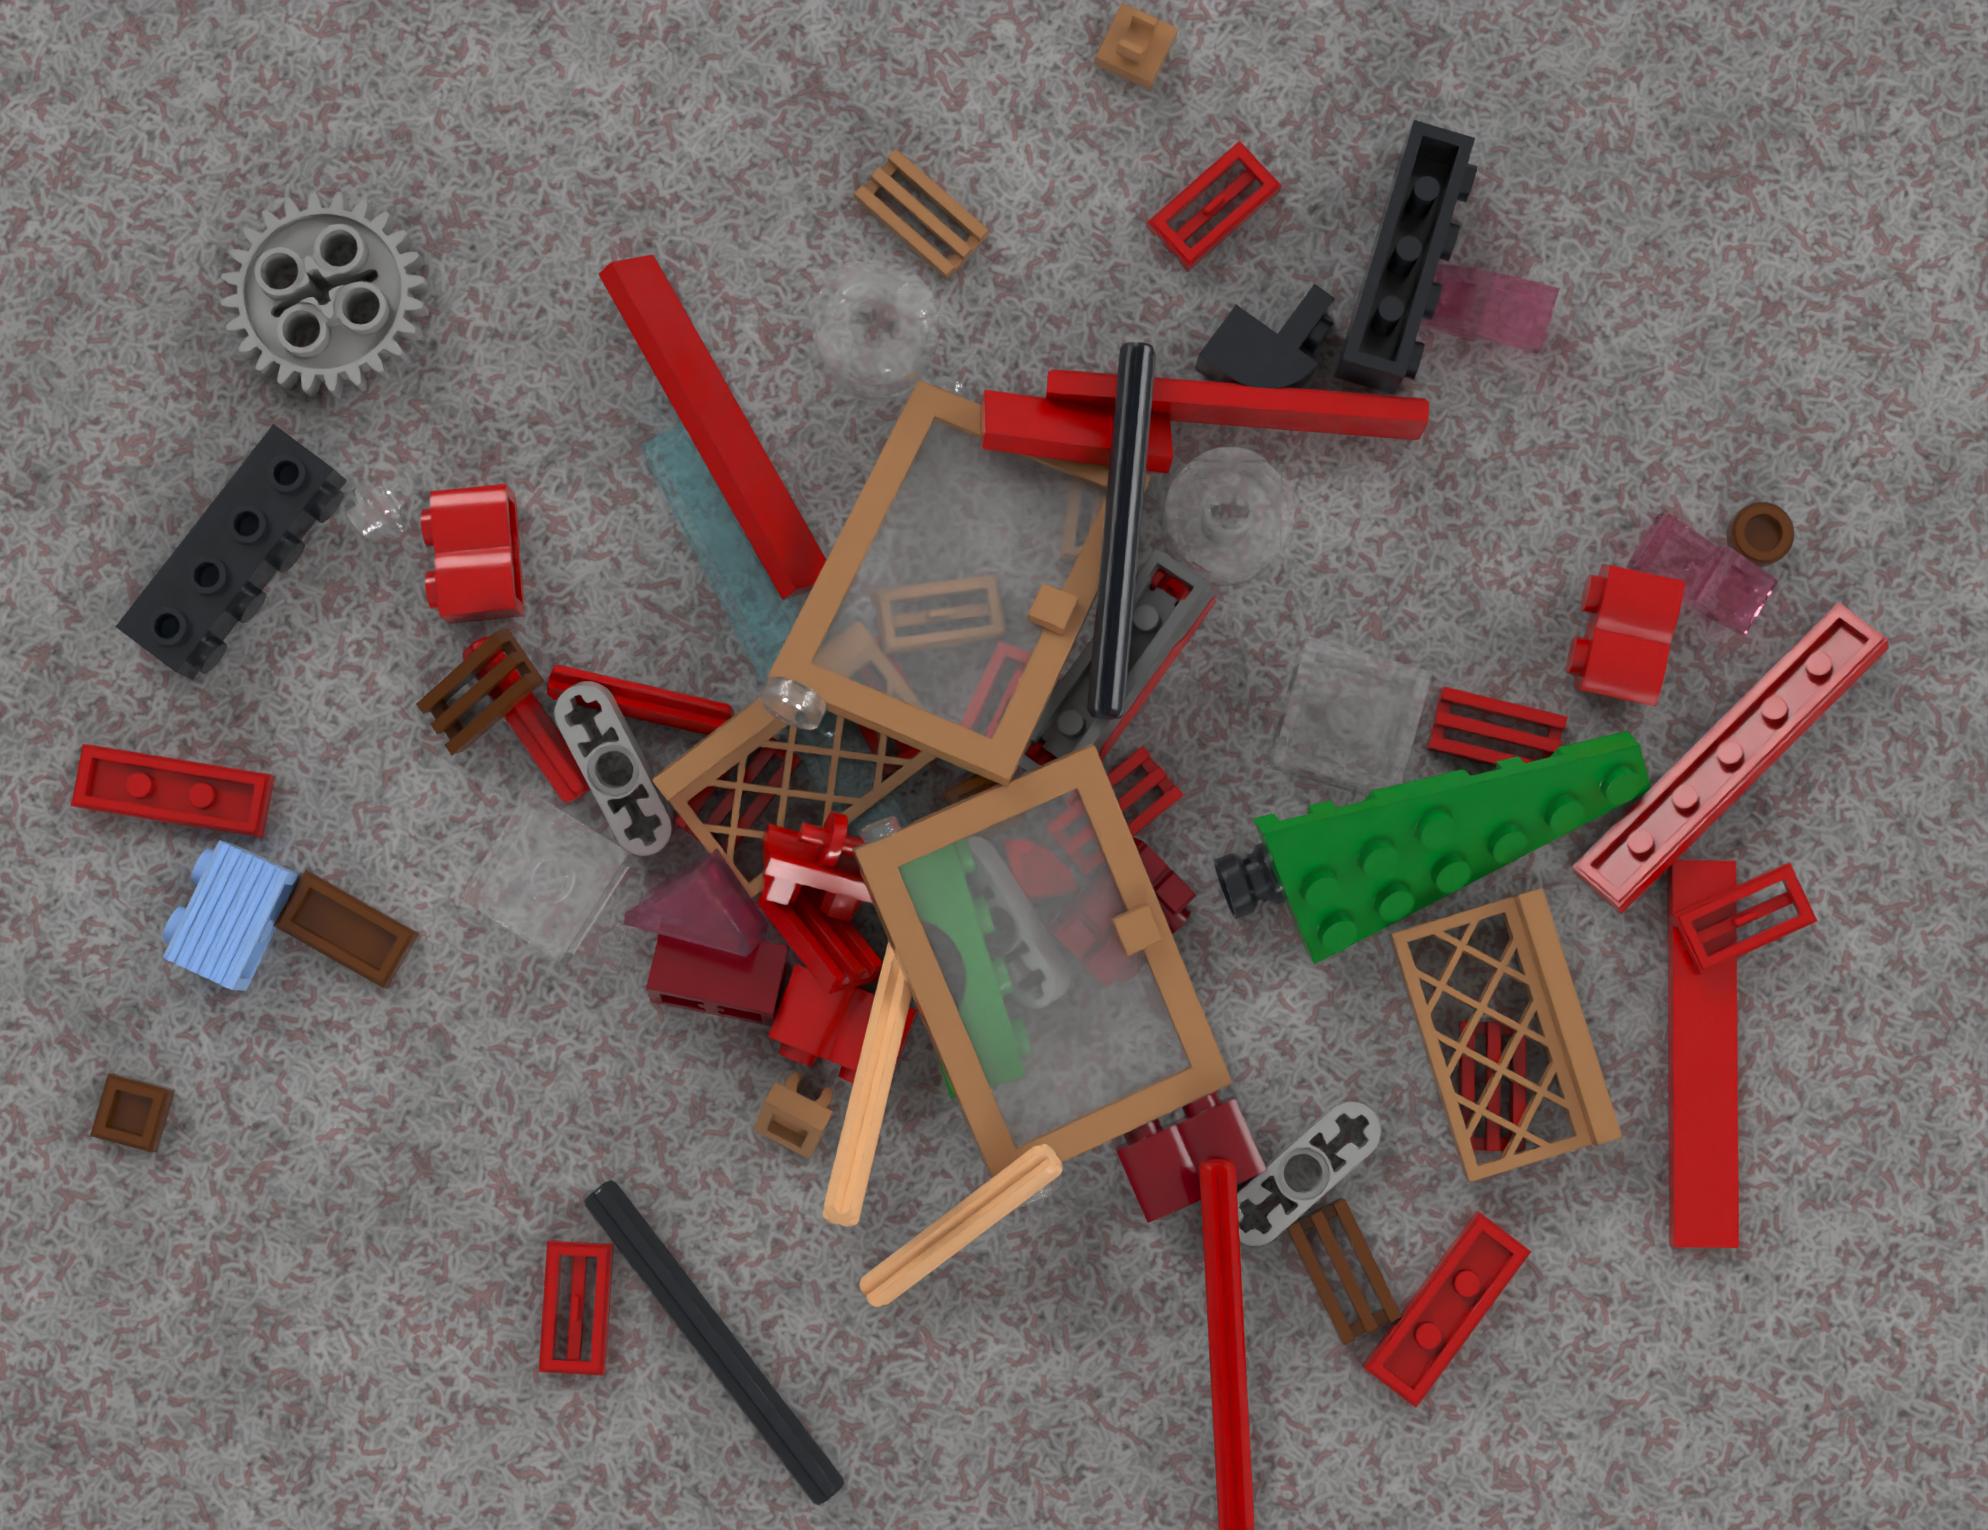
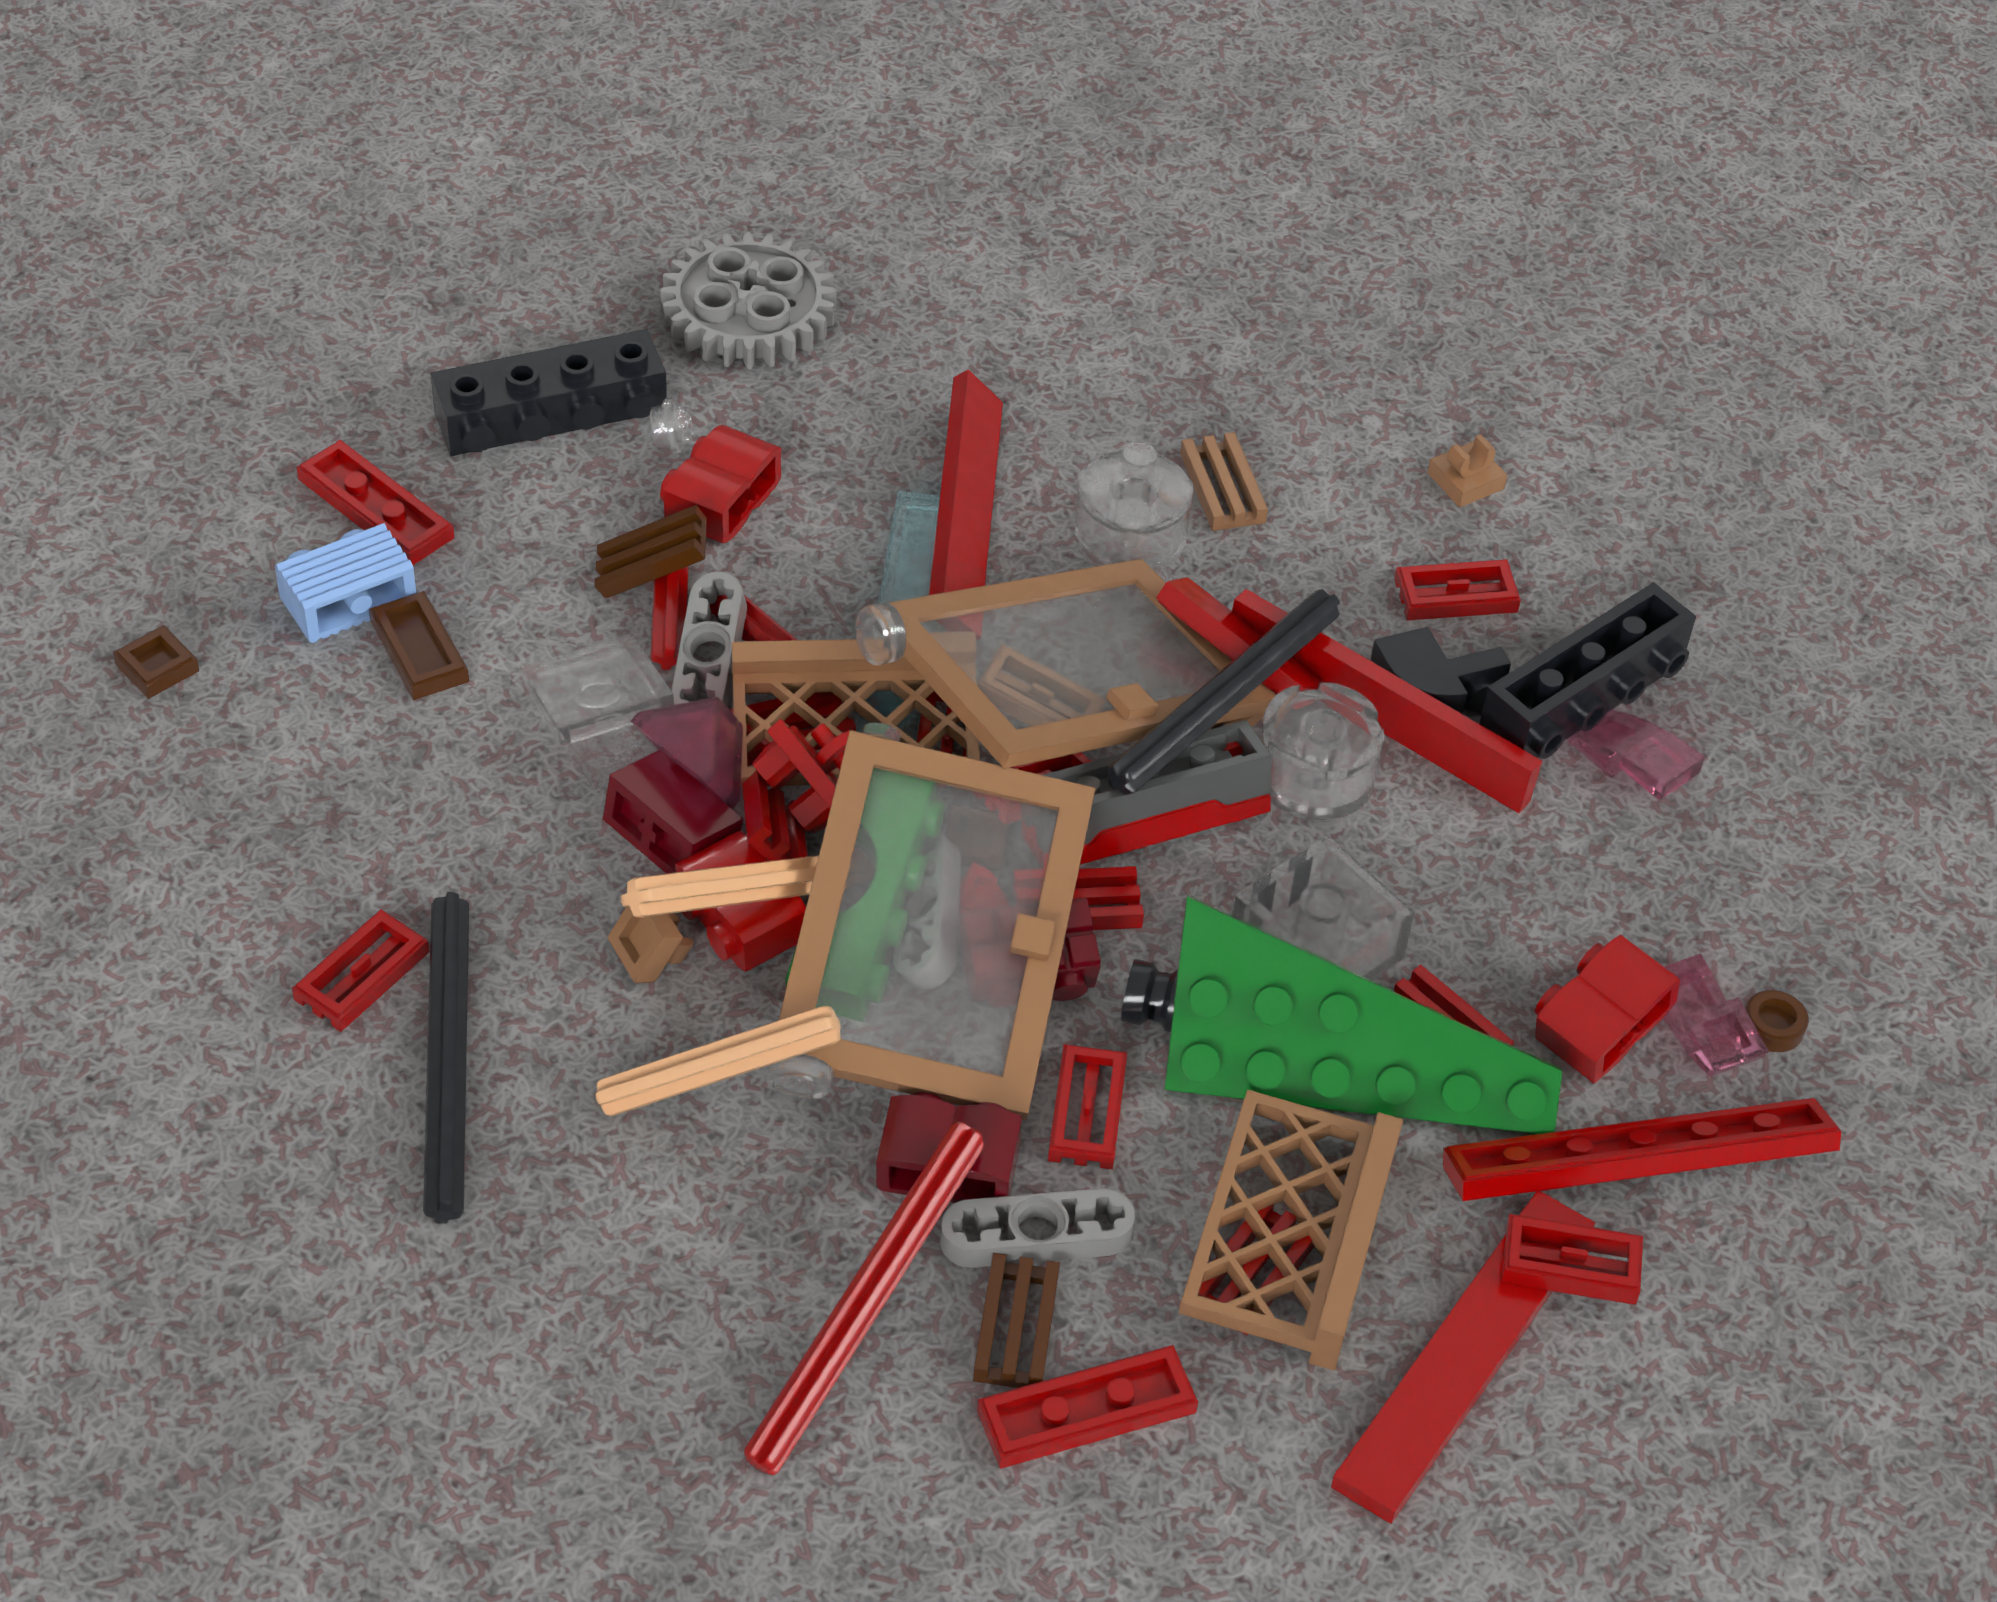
camera: 30 degrees right, 35 degrees down
(1285, 1070) = (1082, 1149): none -> red tile

